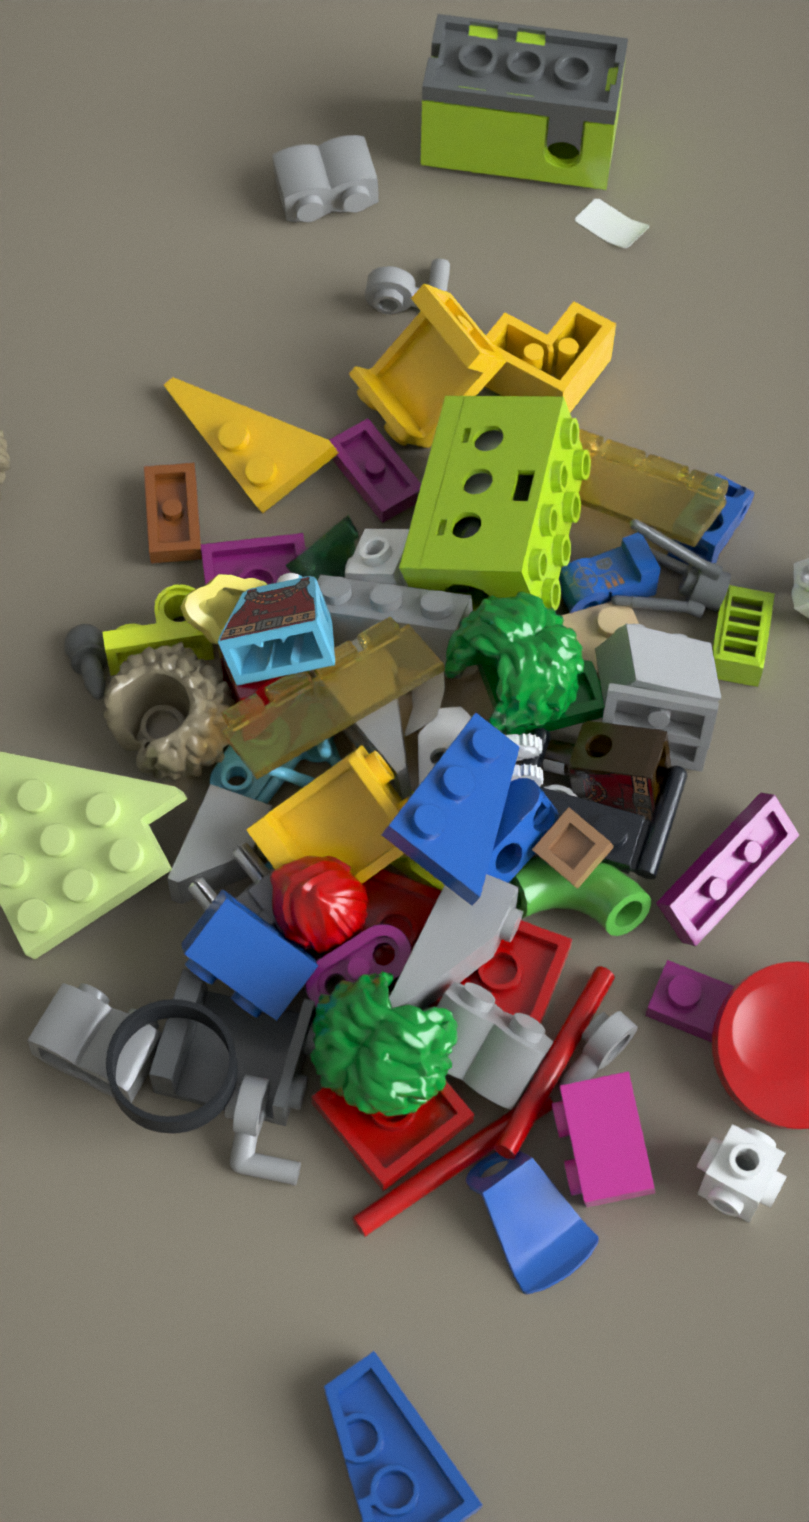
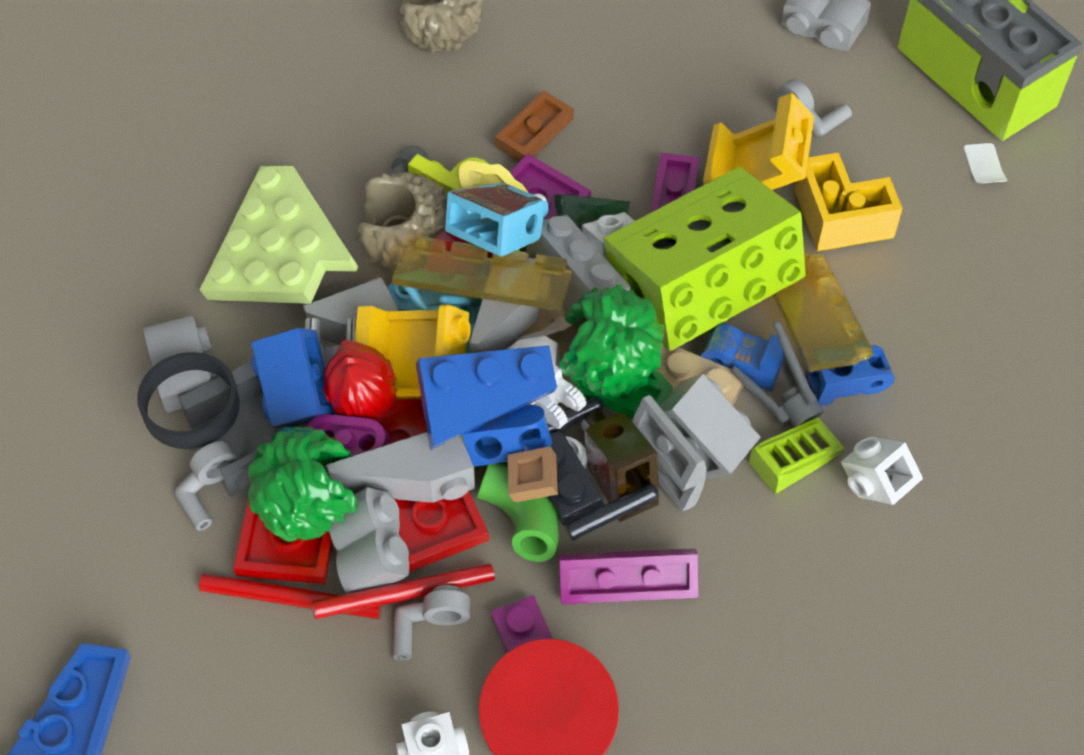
camera: 45 degrees right, 5 degrees down
(258, 450) = (618, 128): yellow wing -> none
(532, 1221) = (291, 668): piece -> none
(605, 1140) = (376, 657): dark pink brick -> none

